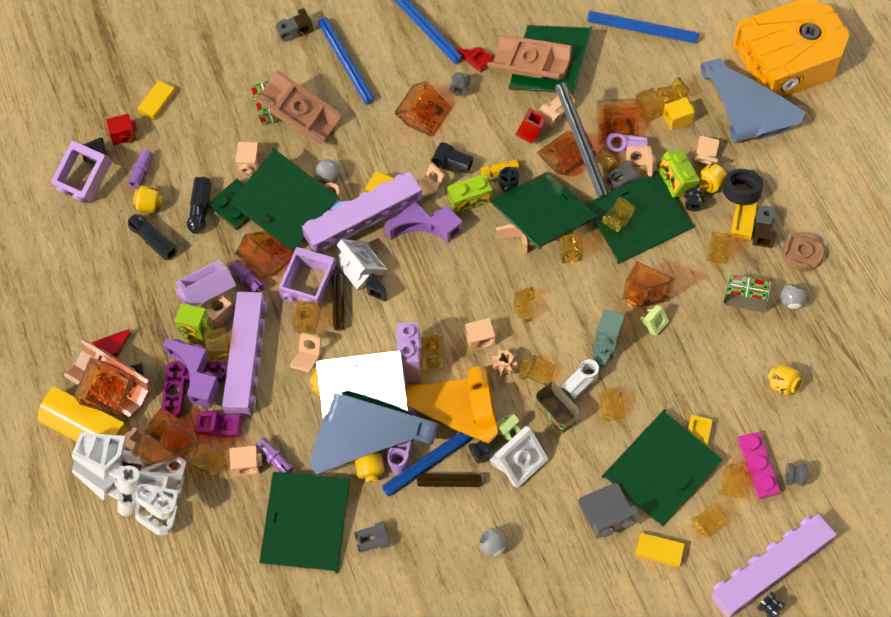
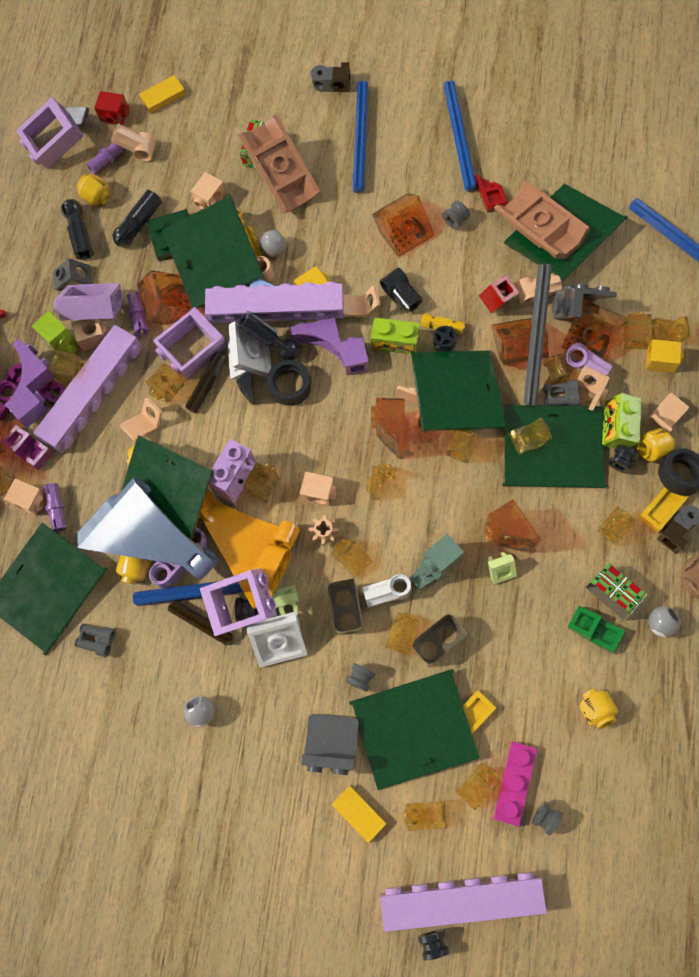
camera: 35 degrees right, 10 degrees up
(165, 146) = (141, 143): none -> light nougat piece
(166, 273) = (67, 272): none -> dark grey bracket
(371, 239) = (267, 335): none -> black piece
(407, 254) = (289, 366): none -> black tyre
(460, 456) = (217, 606): none -> lavender window
(509, 258) = (389, 420): none -> clear orange slope
(589, 104) = (570, 300): none -> dark grey bracket
(599, 451) = (360, 677): none -> dark grey wheel
(641, 376) = (446, 620): none -> dark tan piece
(749, 329) = (596, 630): none -> green slope

